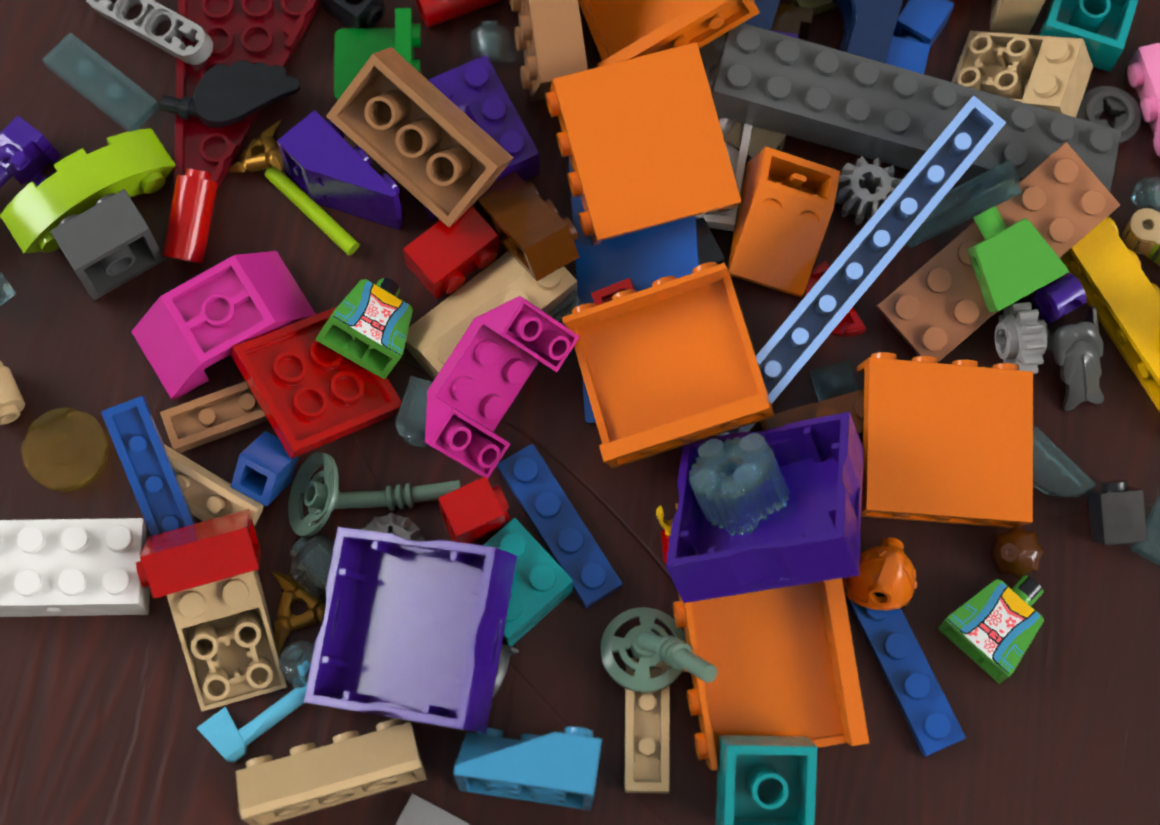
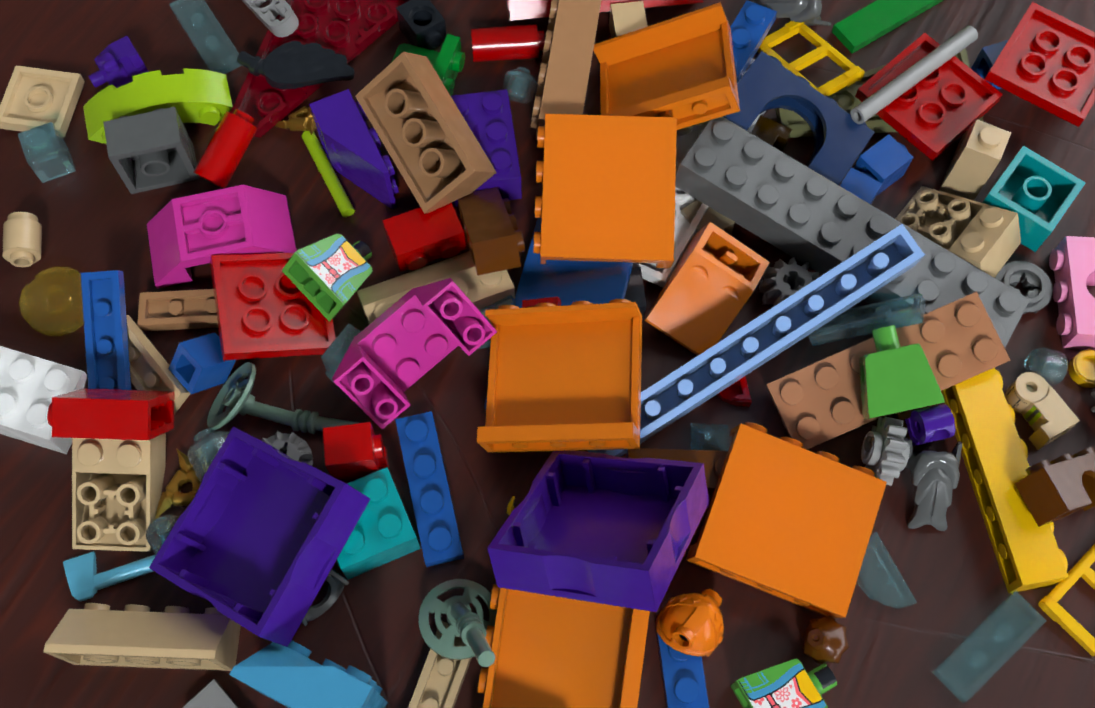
camera: 20 degrees right, 5 degrees down
(738, 482) = (585, 496): clear light blue brick -> none
(1117, 513) = (927, 635): black brick -> none

